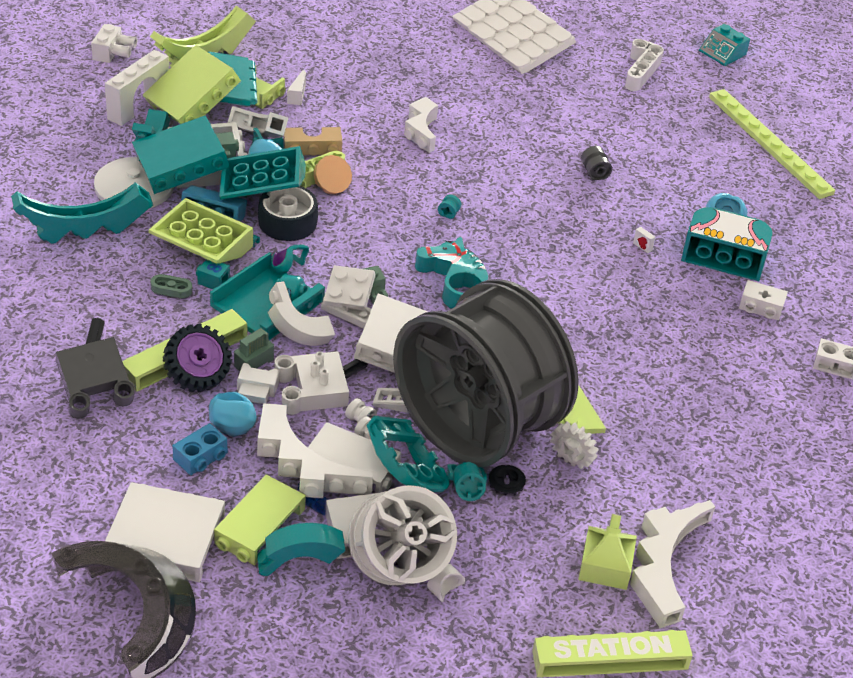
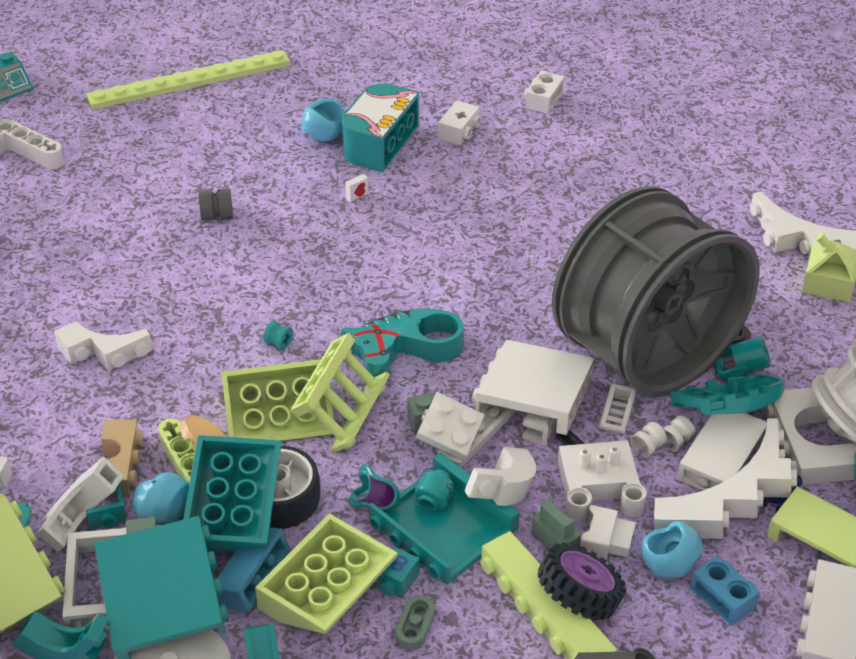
camera: 80 degrees left, 0 degrees up
(373, 212) = (319, 386): none -> yellowish green fence
(374, 210) = (261, 402): none -> yellowish green slope

